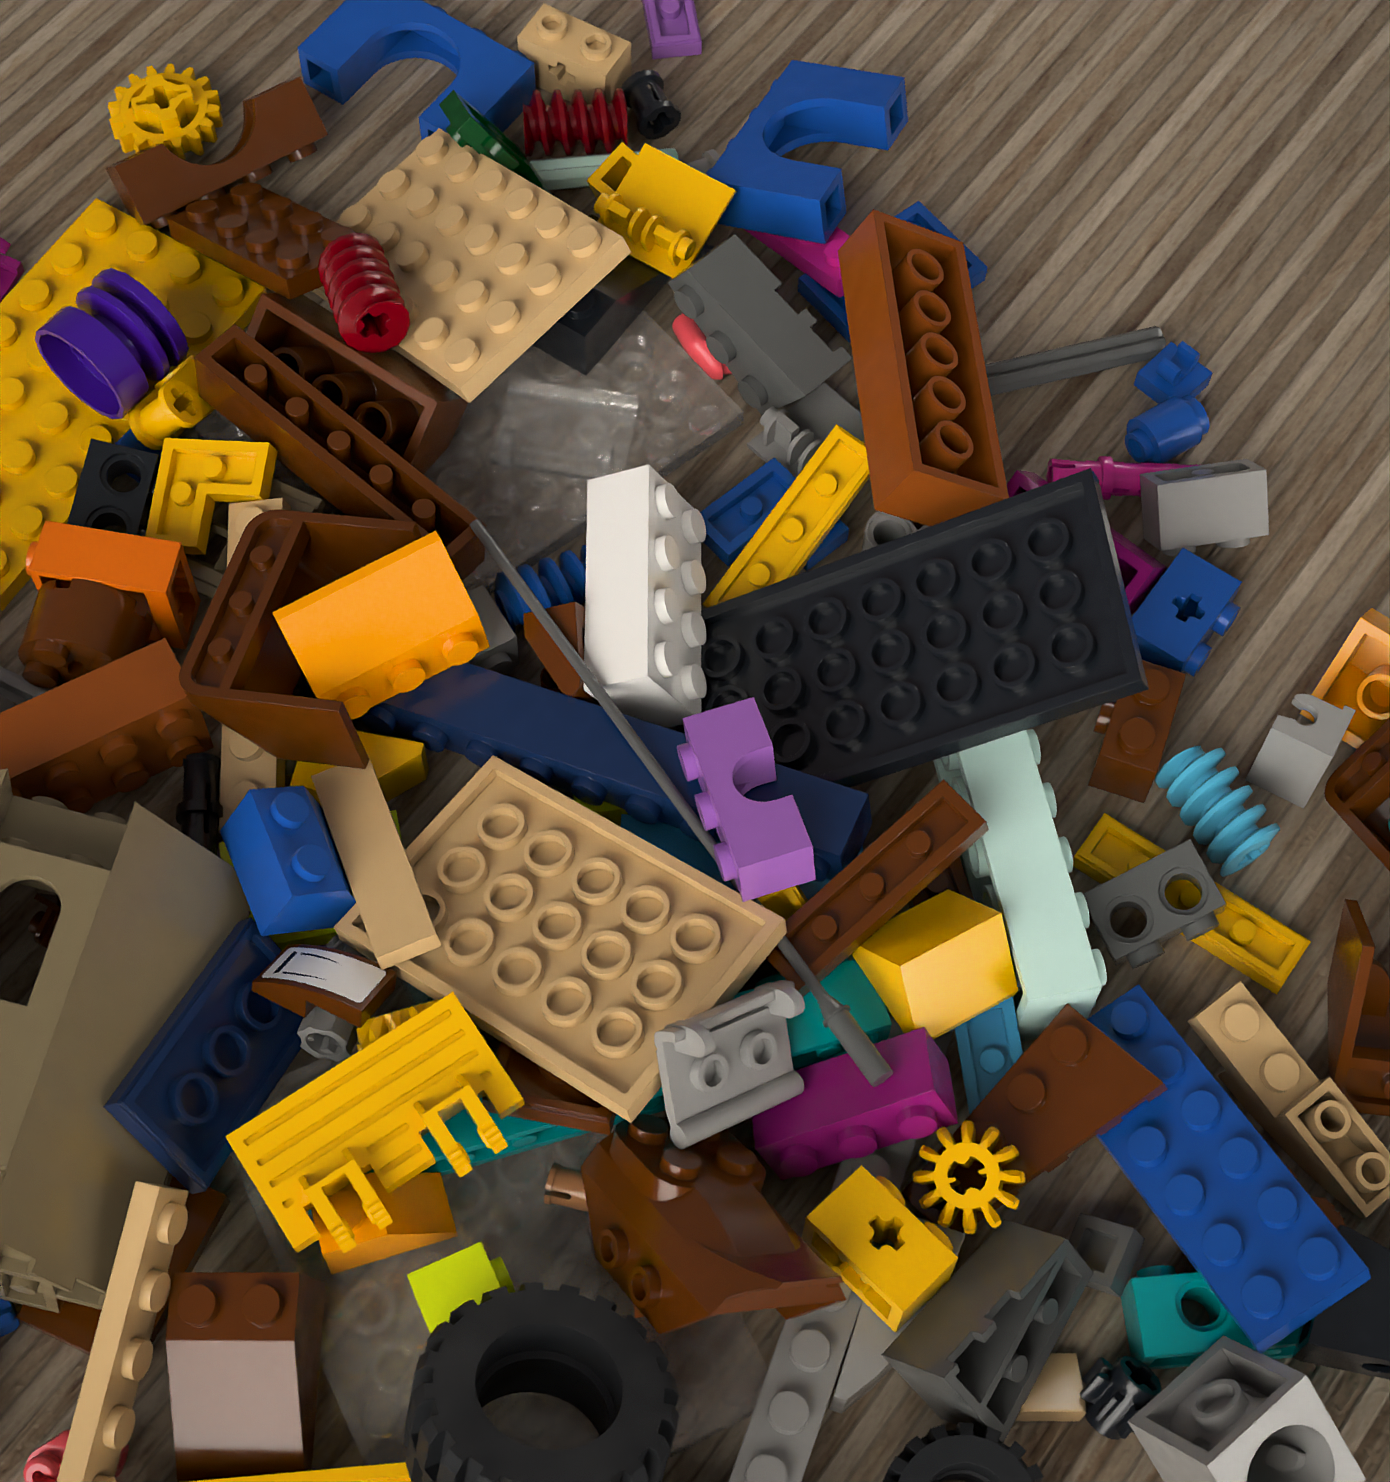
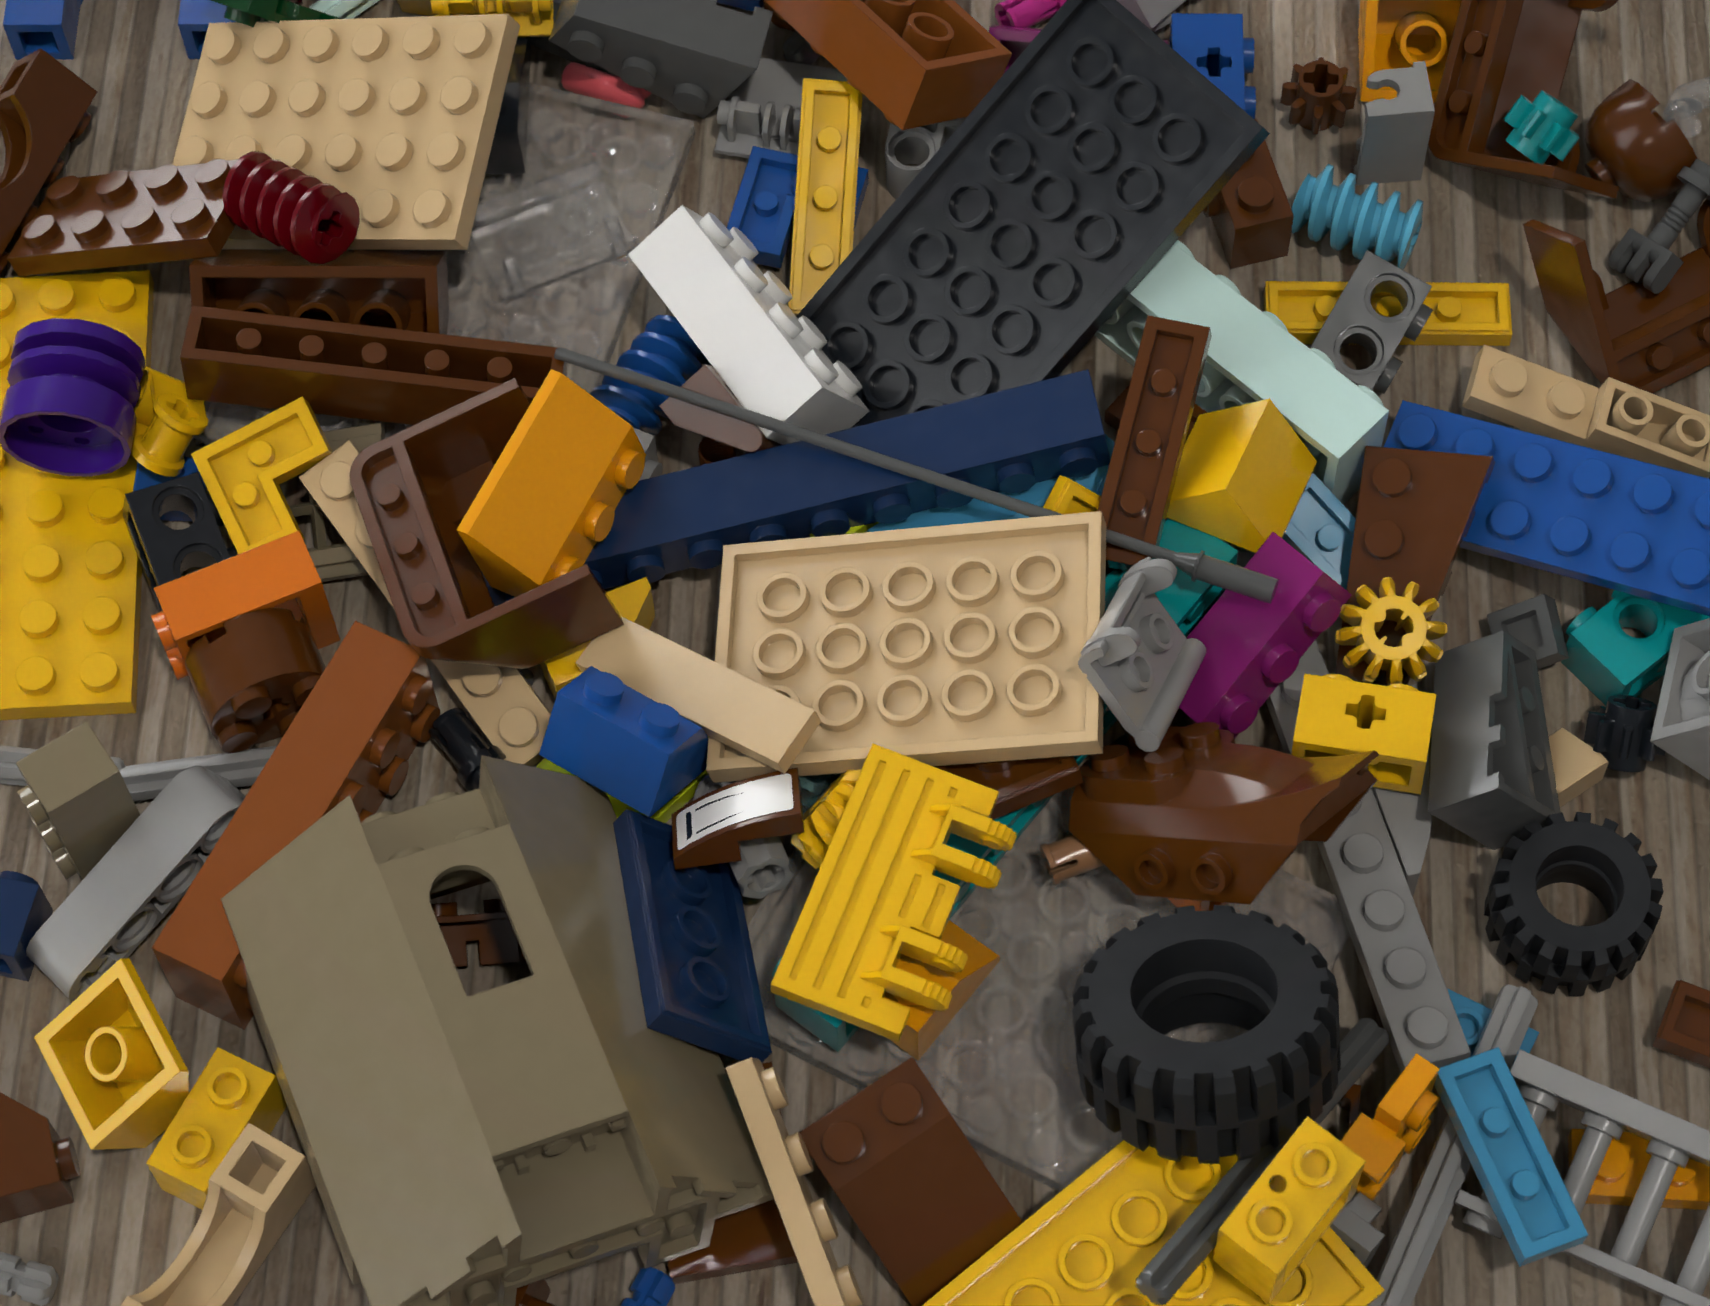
camera: 30 degrees left, 0 degrees up
(455, 1280) = (1040, 998): neon yellow brick -> none
(760, 841) = (1033, 462): medium lavender arch -> none
(1261, 686) = (1318, 95): none -> reddish brown gear

